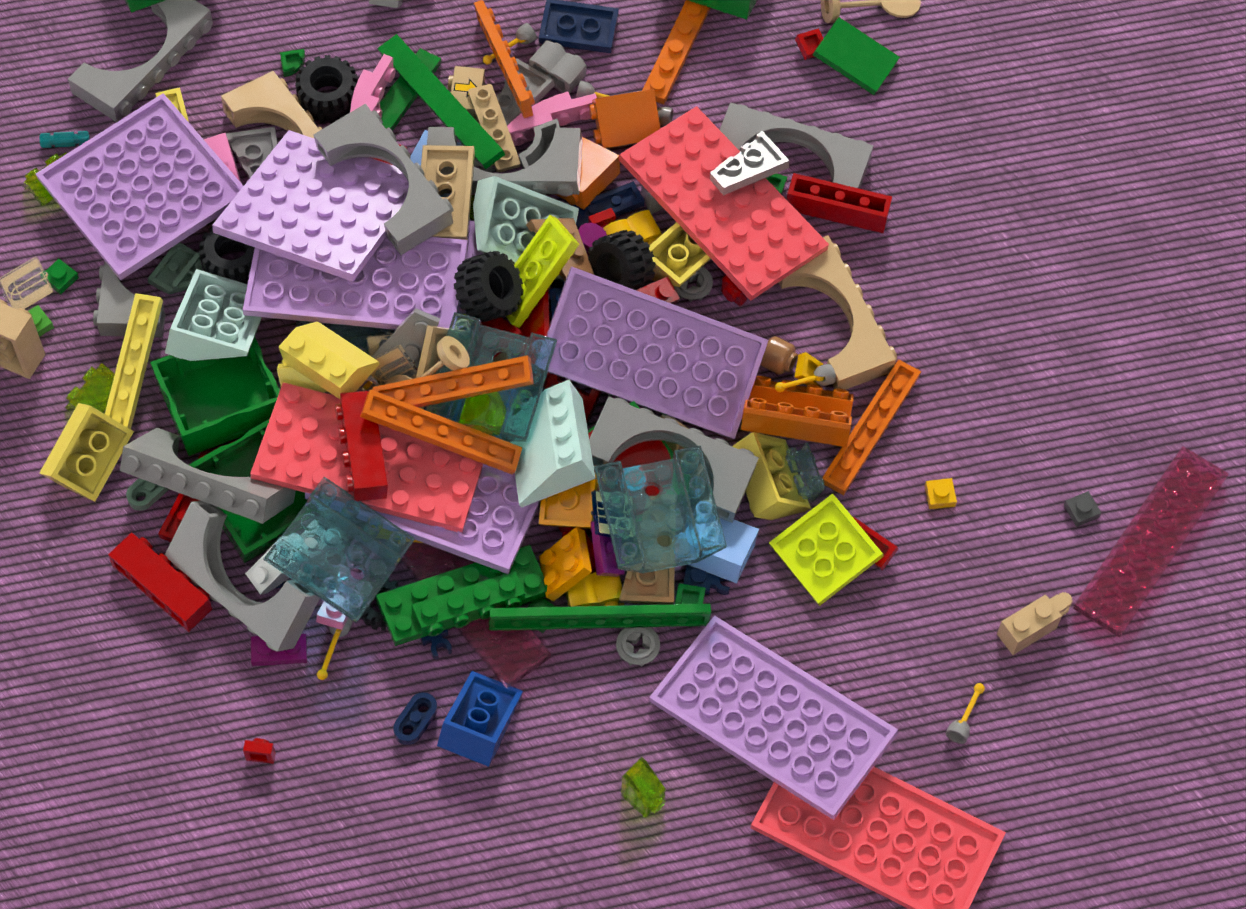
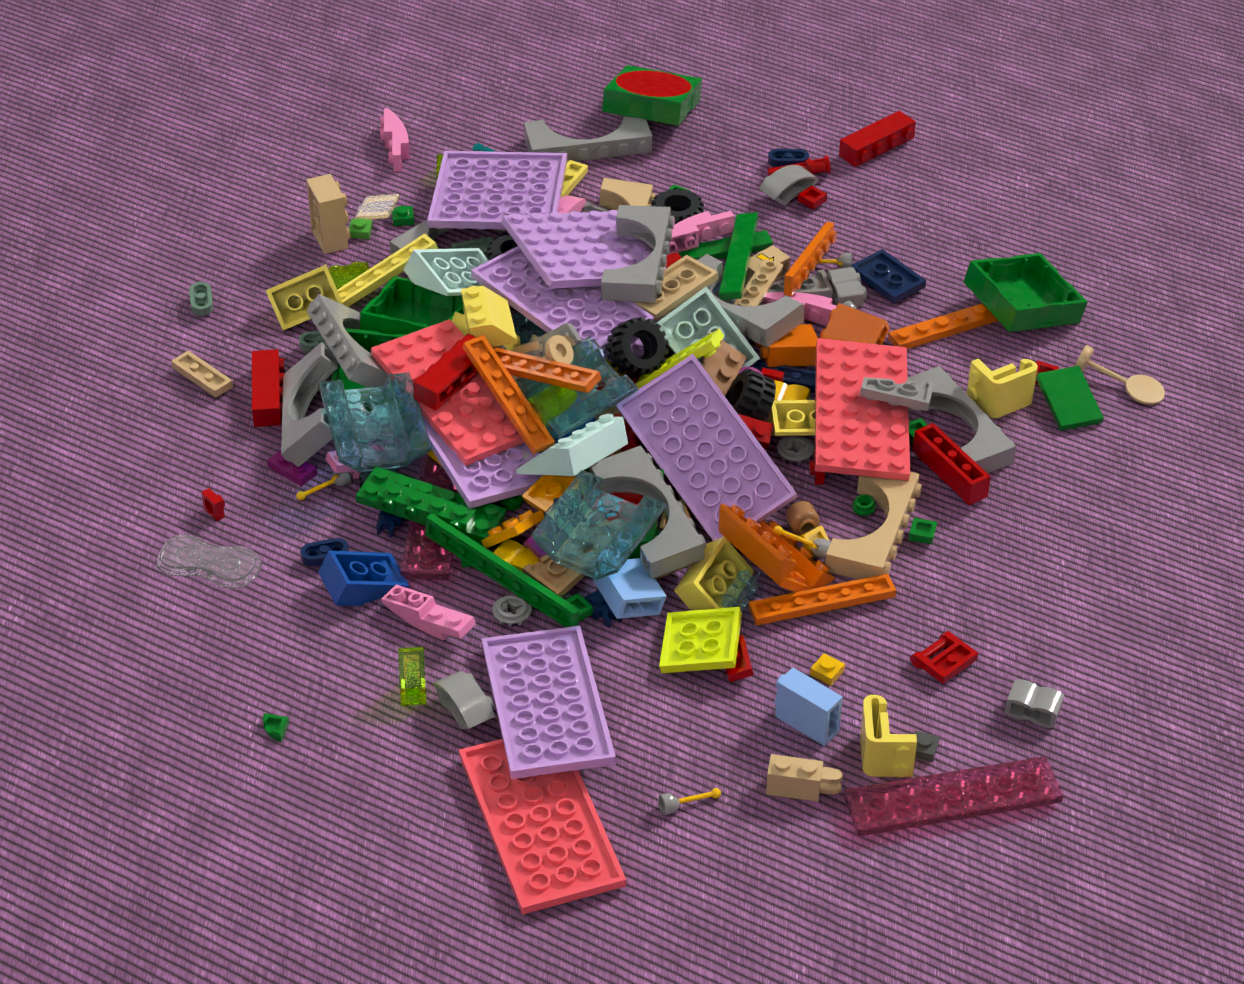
camera: 45 degrees right, 20 degrees down
(77, 614) = (202, 374): none -> tan plate
(295, 823) = (220, 564): none -> clear plate
(579, 710) = (425, 615): none -> bright pink slope
(704, 771) = (464, 699): none -> light grey brick
(790, 98) = (1002, 389): none -> light yellow piece
(805, 294) = (864, 505): none -> green plate
(878, 290) = (922, 531): none -> green plate
(978, 548) = (808, 706): none -> light blue brick
(1025, 408) = (948, 662): none -> red plate
(1062, 539) = (890, 753): none -> light yellow piece
(1125, 400) = (1034, 703): none -> light grey brick

